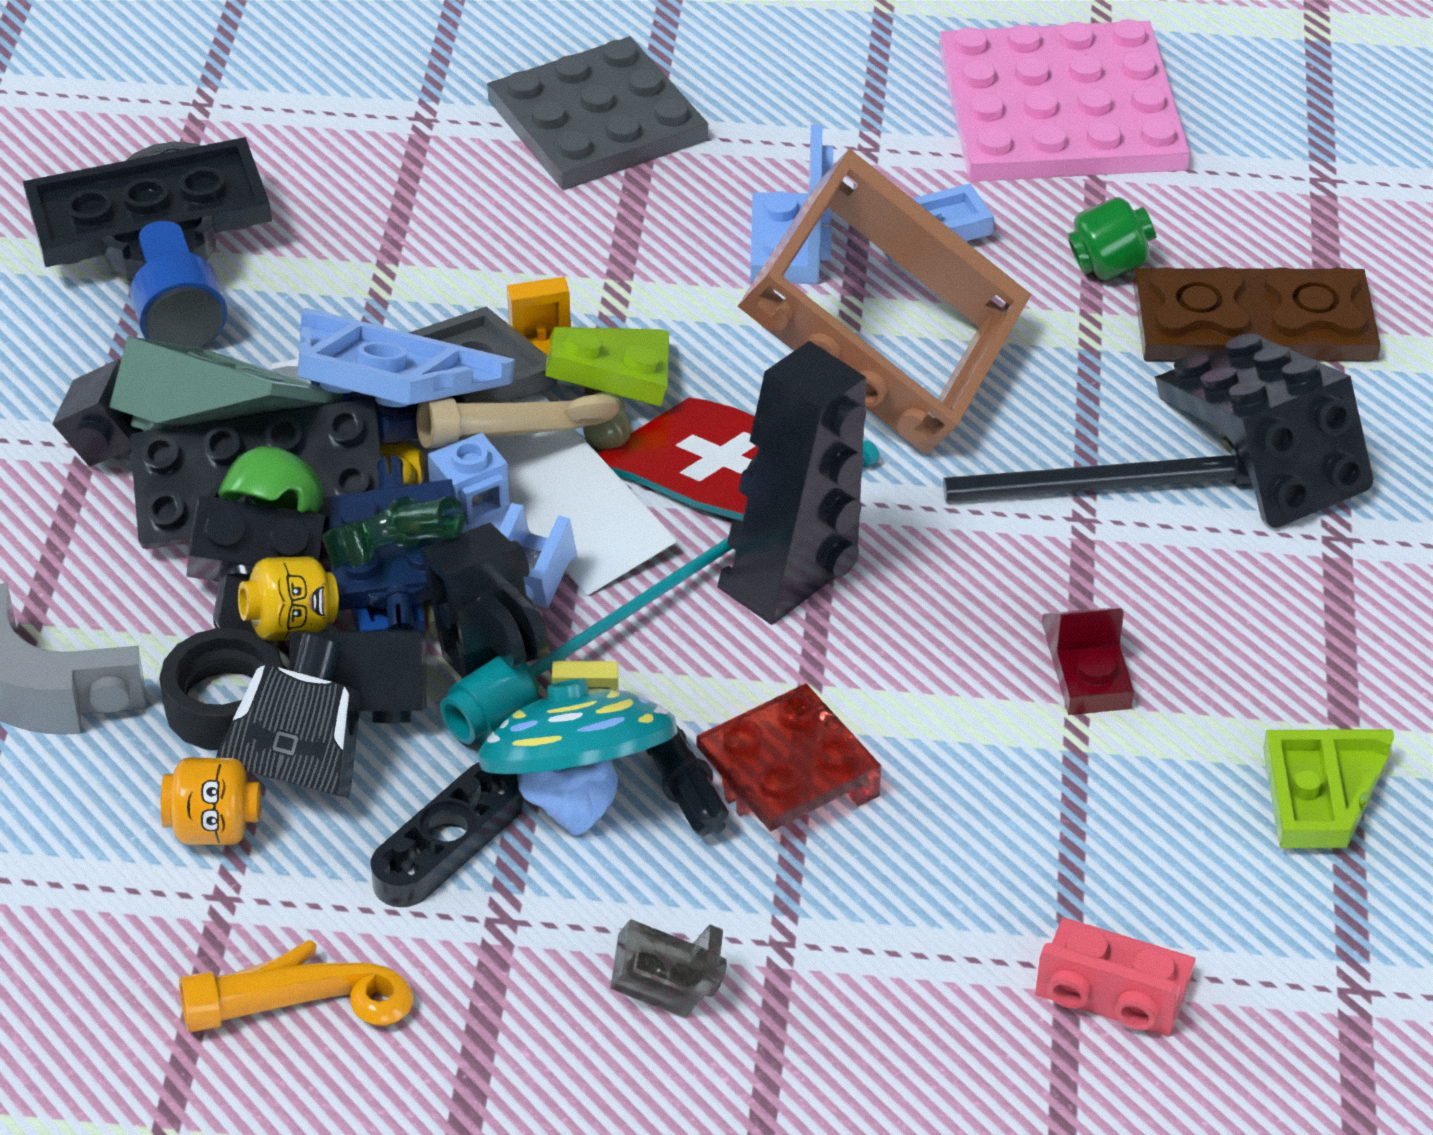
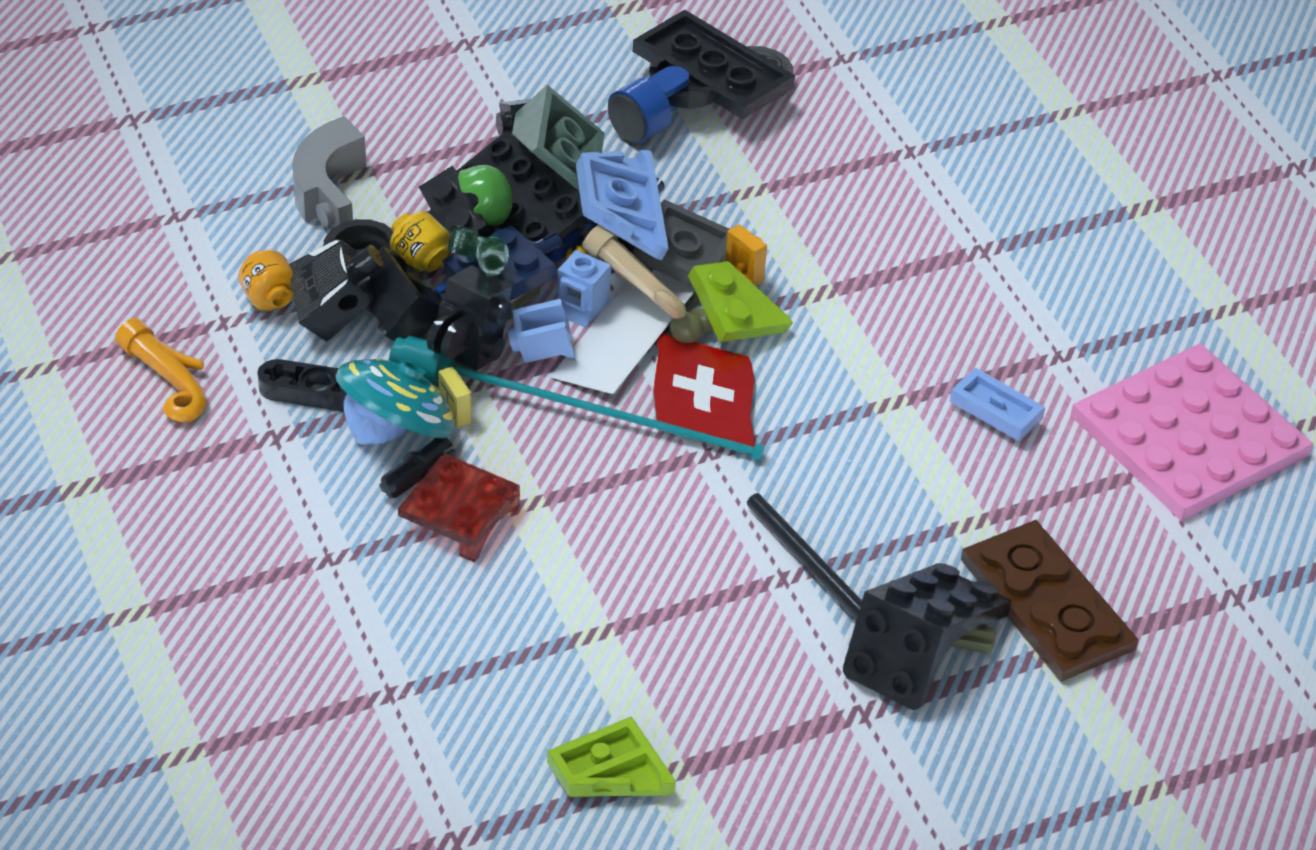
camera: 60 degrees right, 0 degrees up
(597, 112) = (978, 219): dark grey plate -> none
(667, 968) = (265, 507): clear smoke bracket -> none
(776, 211) = (938, 336): light blue bracket -> none
(799, 484) = (644, 413): black wedge -> none
(926, 251) = (927, 379): nougat window -> none
(1089, 659) = (651, 616): dark red slope -> none
(1111, 239) = (1048, 494): green head -> none
(1114, 976) = (387, 715): coral bracket -> none

